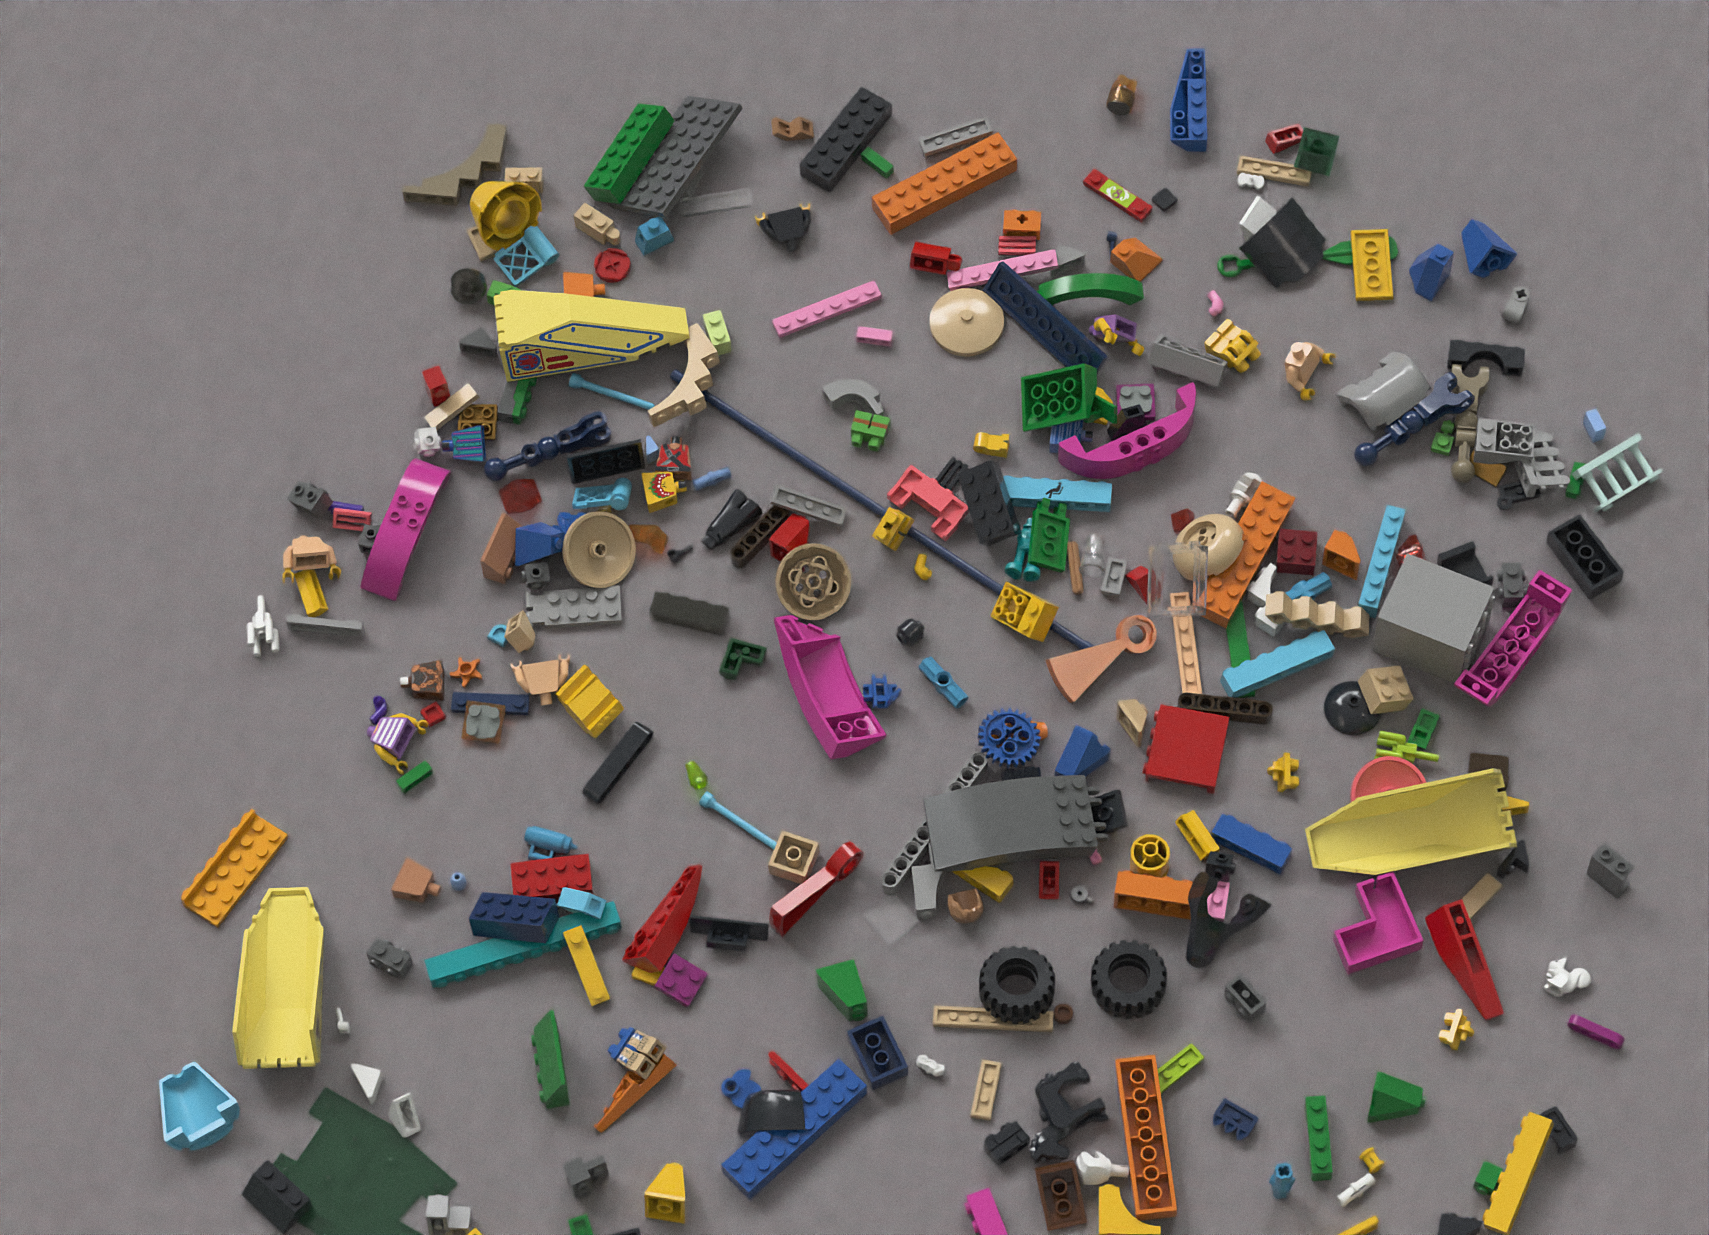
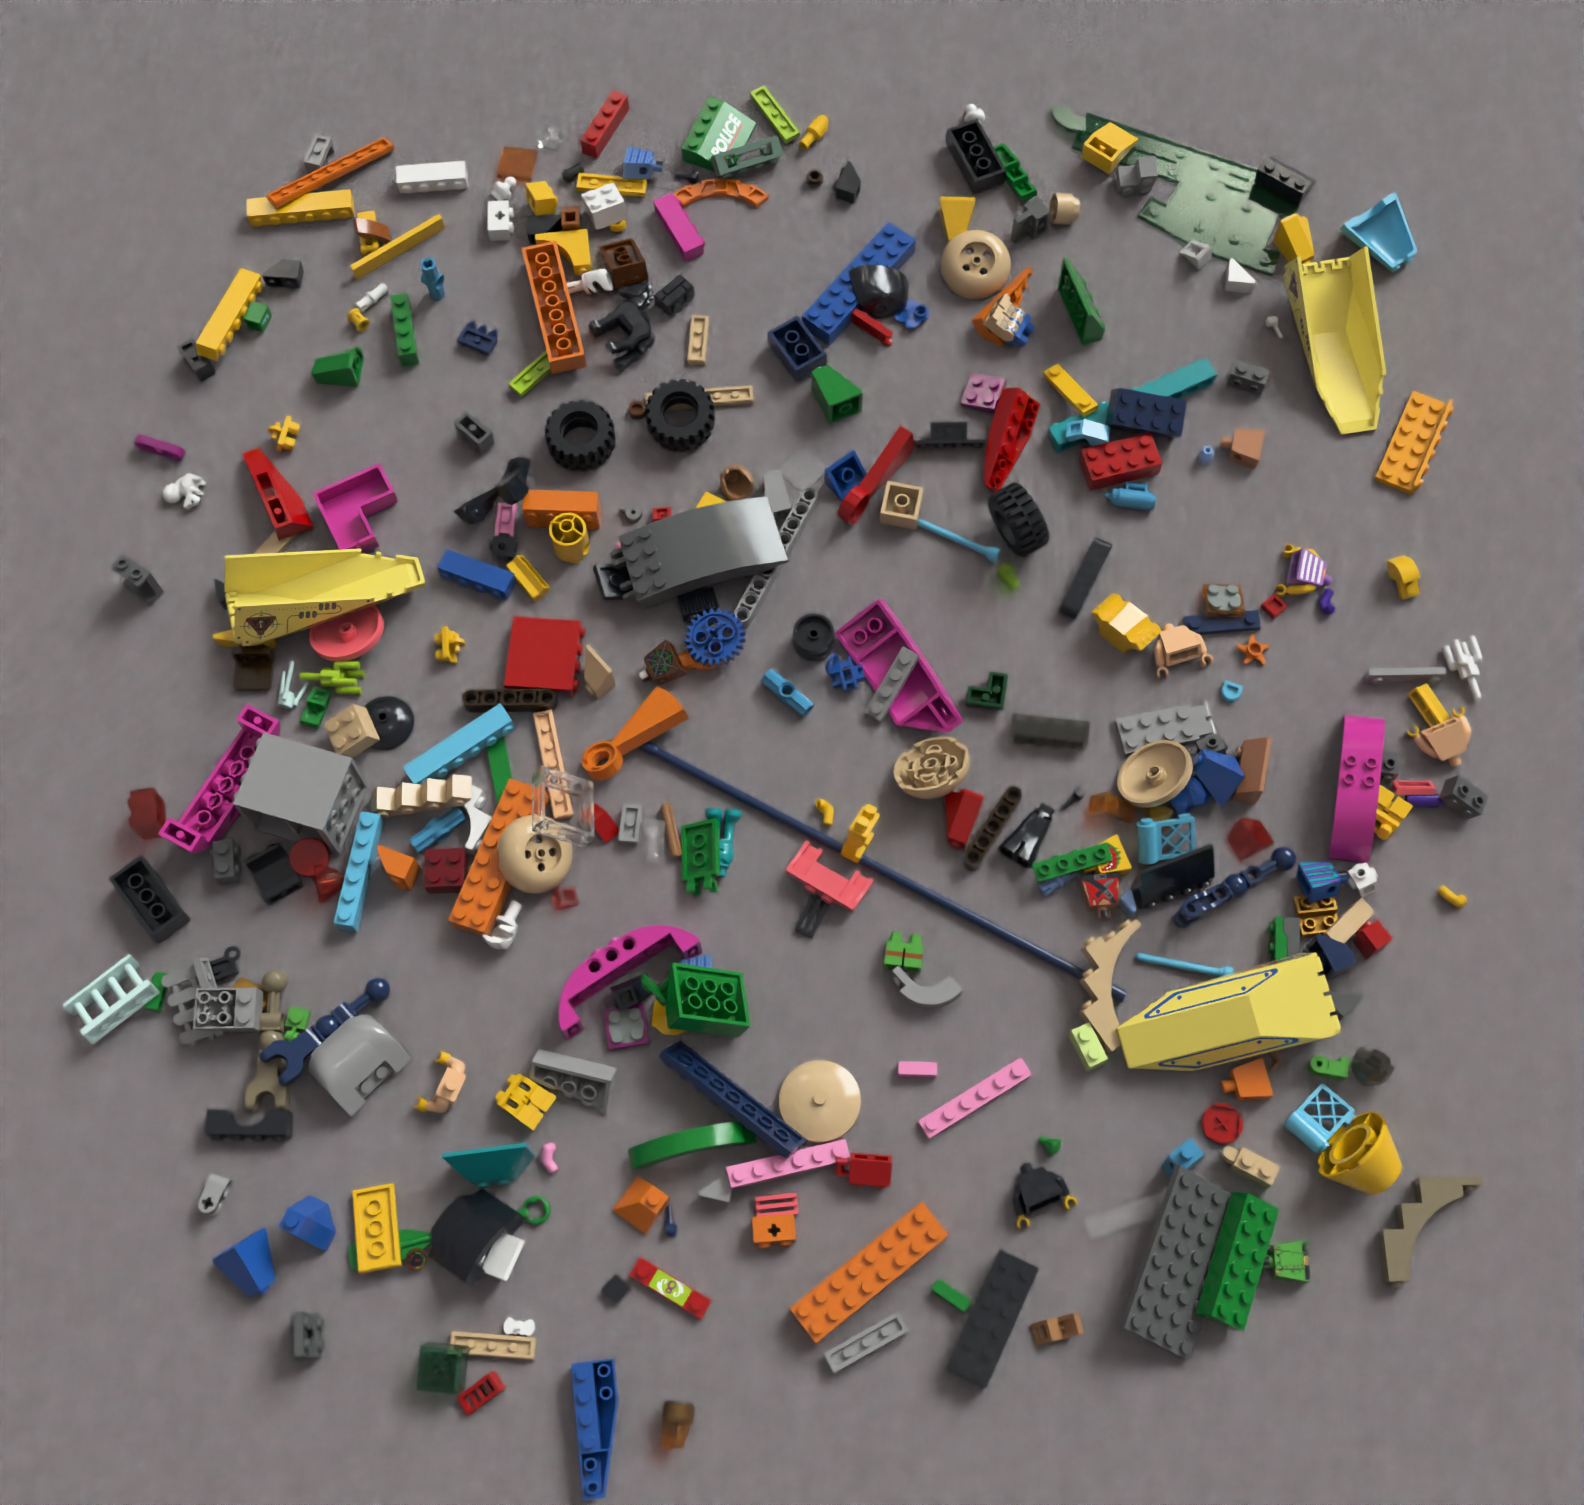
camera: 170 degrees right, 5 degrees up
(288, 1115) = (1294, 238): none -> yellow slope
(294, 723) = (1406, 574): none -> yellow brick
(349, 420) = (1457, 901): none -> yellow arm
(379, 498) = (1389, 813): none -> yellow hips
(414, 777) = (1273, 543): green piece -> none
(426, 681) = (1289, 632): torso -> none
(475, 373) = (1334, 956): none -> dark blue slope
(520, 632) = (1212, 689): tan slope -> none
(531, 175) = (1348, 1215): tan brick -> none
(542, 1191) = (1063, 208): none -> tan piece
(583, 153) = (1289, 1262): none -> bright green torso
(670, 1135) = (971, 283): none -> tan brick
(677, 809) = (1018, 519): none -> black tyre
(696, 486) = (1072, 862): none -> green bracket
(767, 263) = (1051, 1145): none -> green rock
(808, 505) = (952, 853): light grey plate -> none
(836, 671) = (892, 684): none -> light grey plate
(847, 903) = (844, 474): none -> blue slope
(908, 730) = (813, 637): none -> black wheel
(910, 632) = (827, 738): black head -> none
(930, 1065) = (749, 350): white piece -> none
(989, 503) = (765, 874): black brick -> none
(992, 444) = (773, 954): yellow leg -> none
(1024, 612) = (715, 768): yellow slope -> none
(1062, 719) = (663, 664): none -> torso
(1076, 494) = (700, 905): medium azure brick -> none
(1082, 754) = (644, 632): blue slope -> none
(1116, 329) = (656, 1097): torso -> none
(1291, 291) = (491, 1164): none -> teal slope
(1337, 238) = (416, 1259): none -> tile
(1434, 189) = (301, 1346): none -> dark grey brick
(1452, 740) = (286, 698): none -> light aqua plant
(1589, 633) = (147, 812): none -> clear red brick
(1594, 425) = (133, 1054): light blue piece -> none

